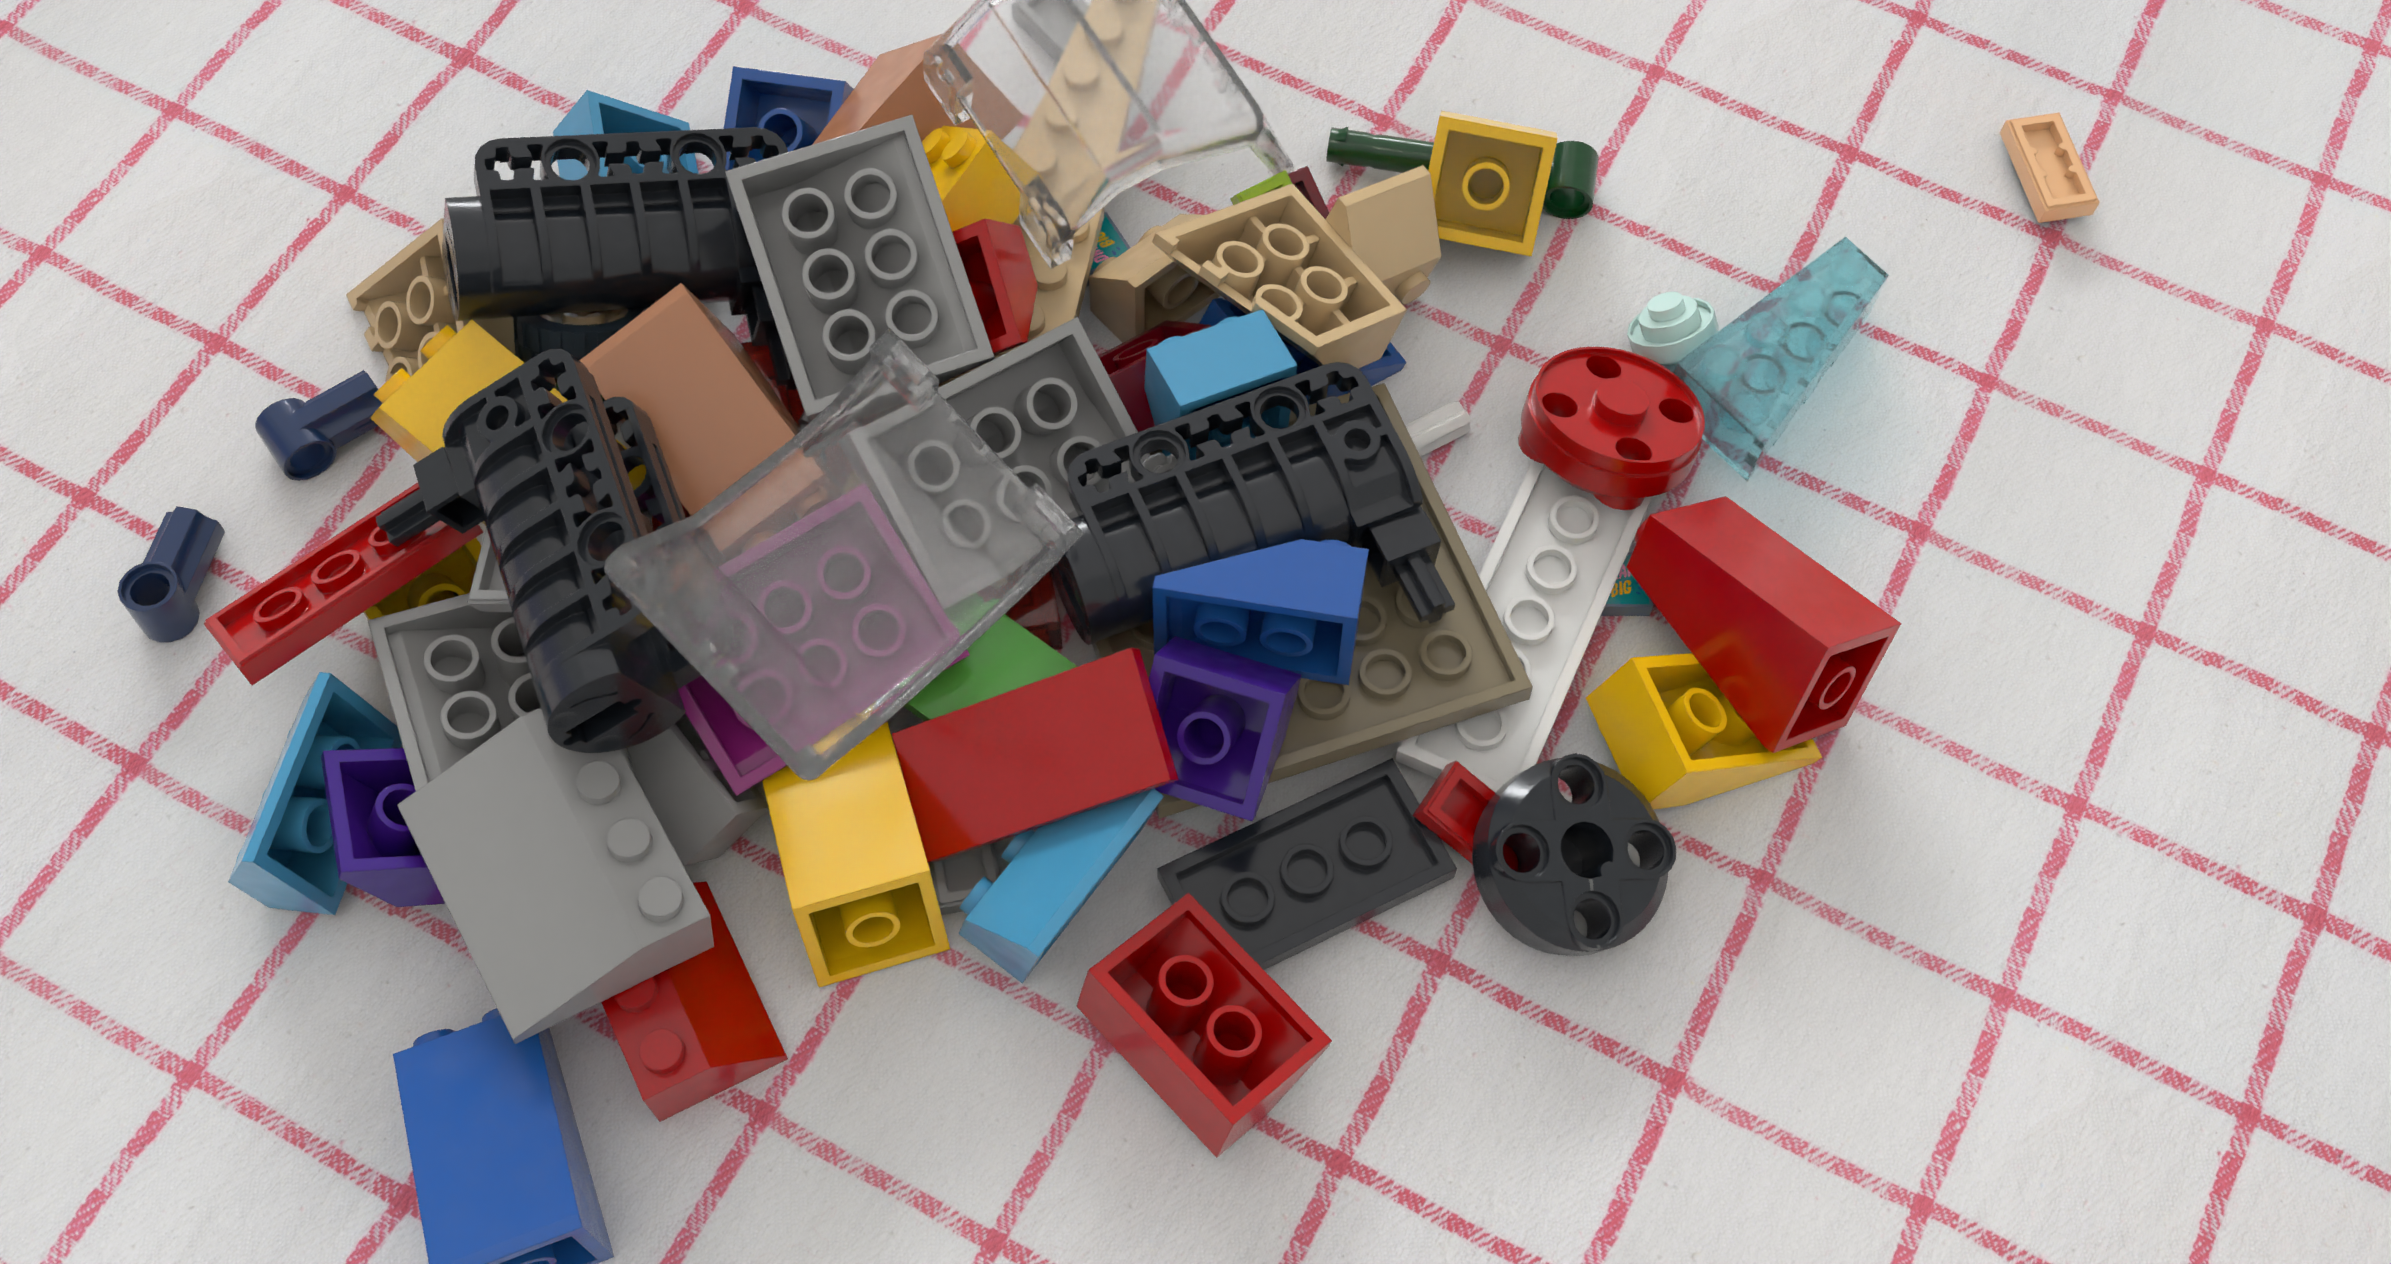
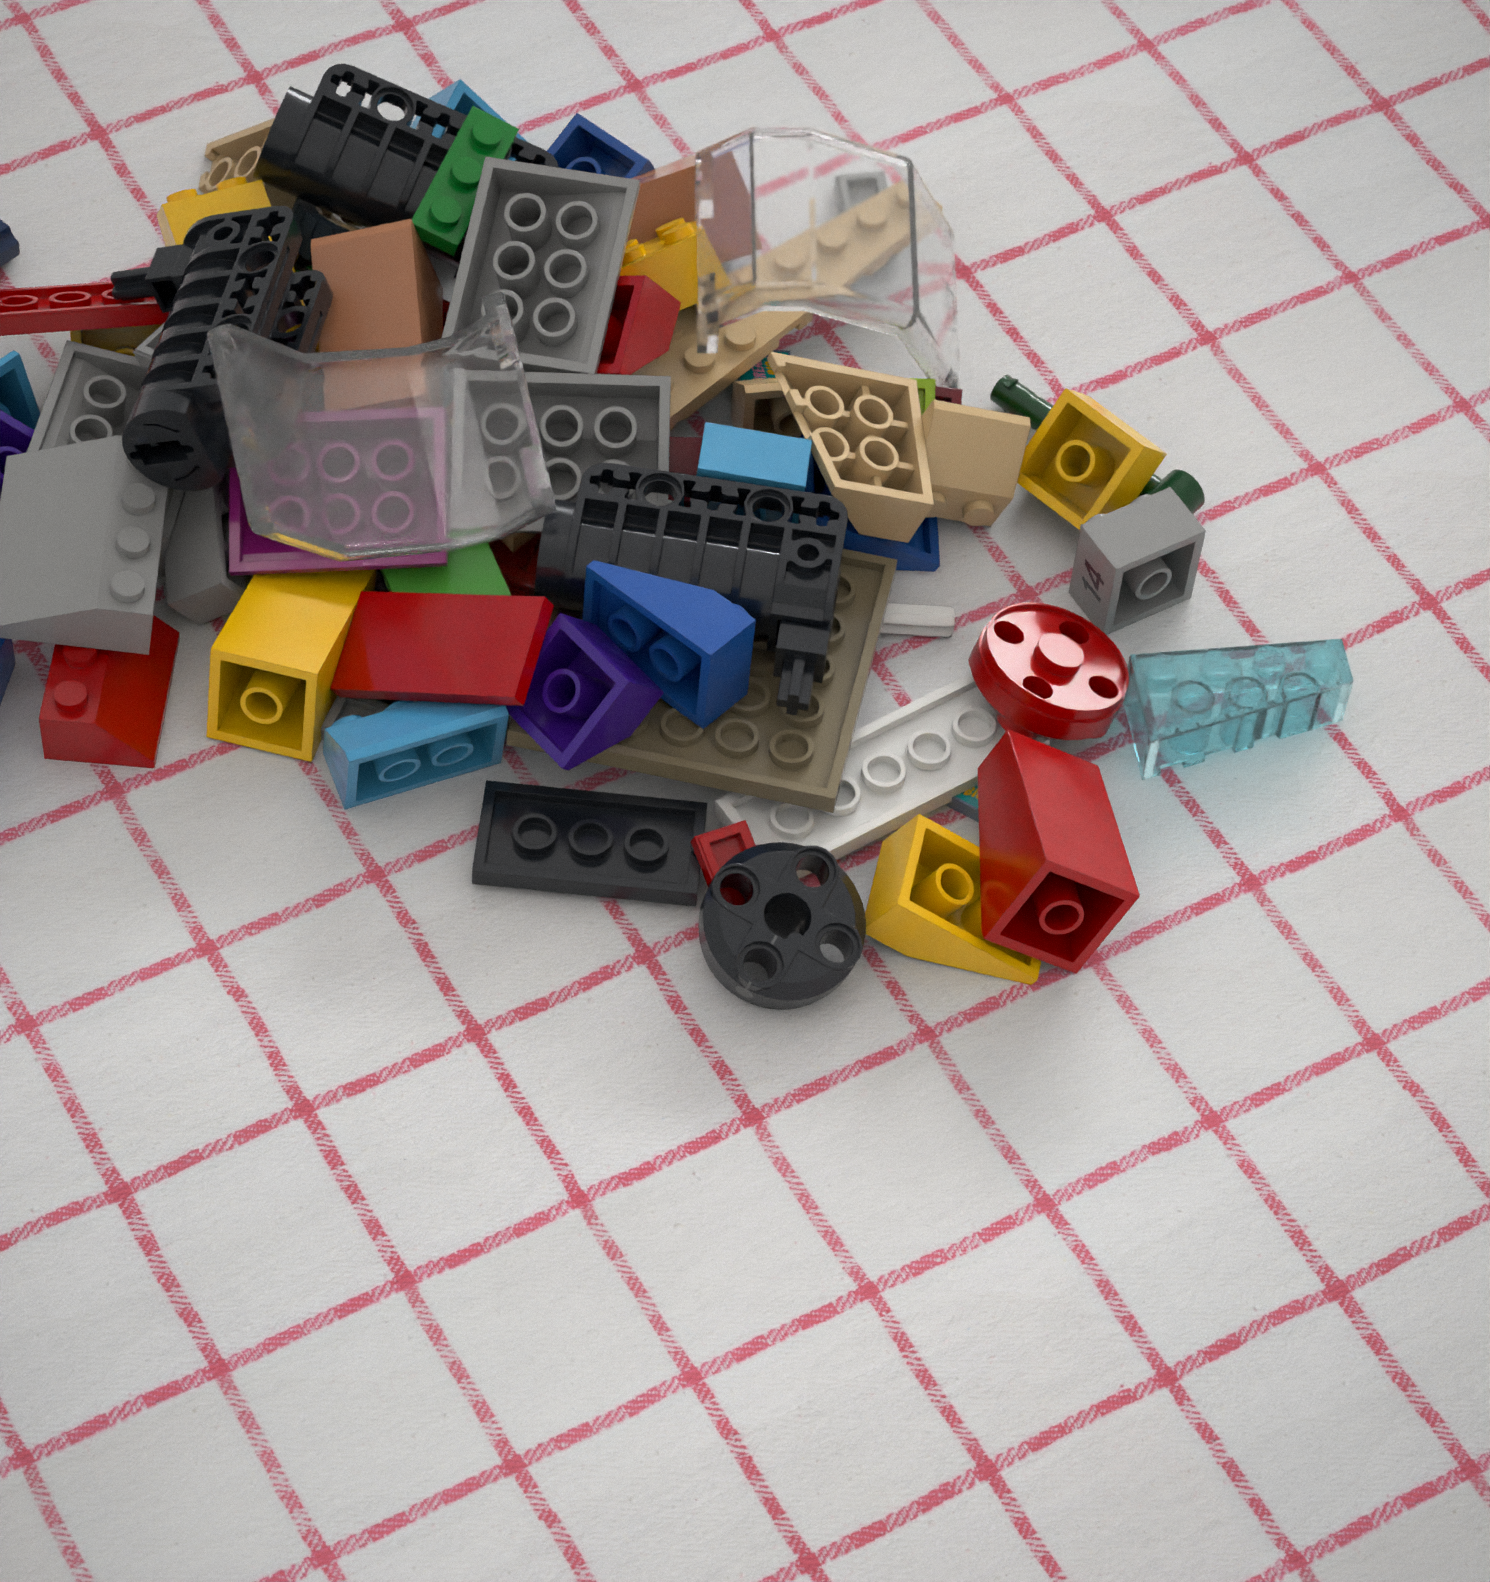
camera: 30 degrees right, 10 degrees down
(308, 433) = (115, 217): dark blue piece -> none
(700, 207) = (449, 201): none -> green plate
(1201, 1023) = (438, 882): red slope -> none
(1600, 257) = (1136, 560): none -> light grey brick
(1671, 327) = (1158, 632): light aqua plate -> none

